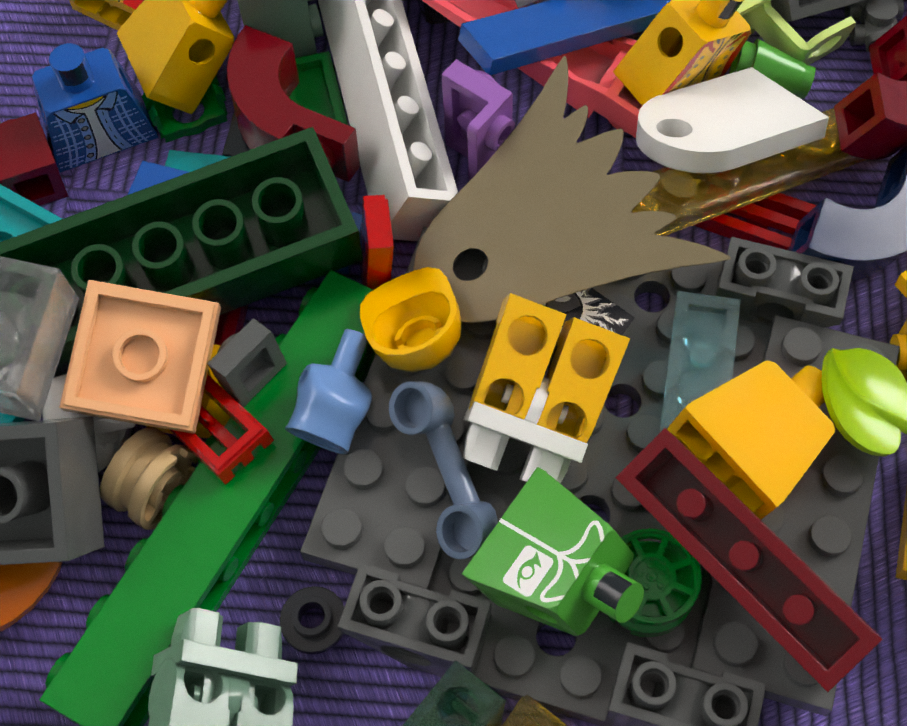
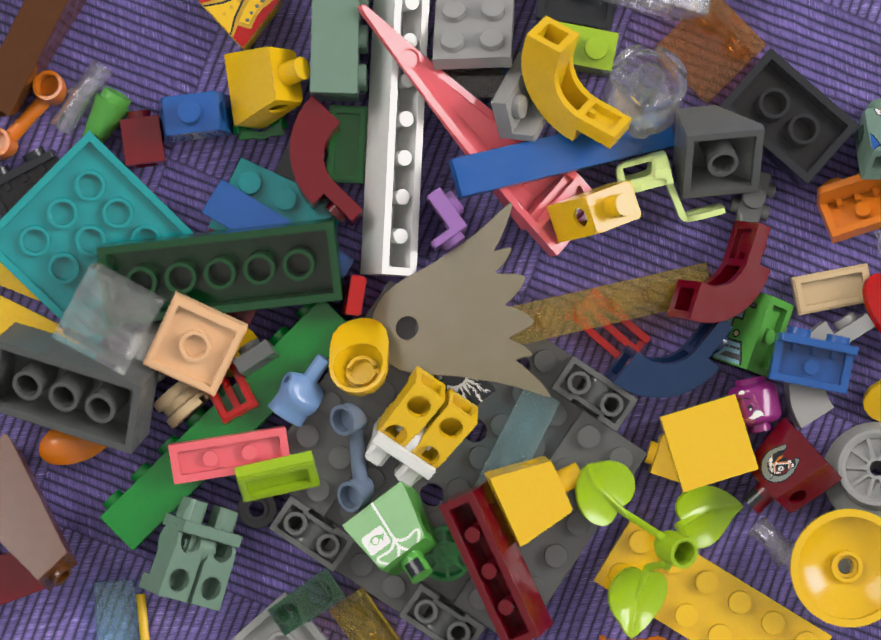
camera: 15 degrees right, 25 degrees up
(238, 522) = (220, 454): none -> coral plate
(328, 530) = (277, 476): none -> lime tile
(726, 123) = (603, 272): white tile -> none
(776, 65) = (660, 221): bright green cone -> none

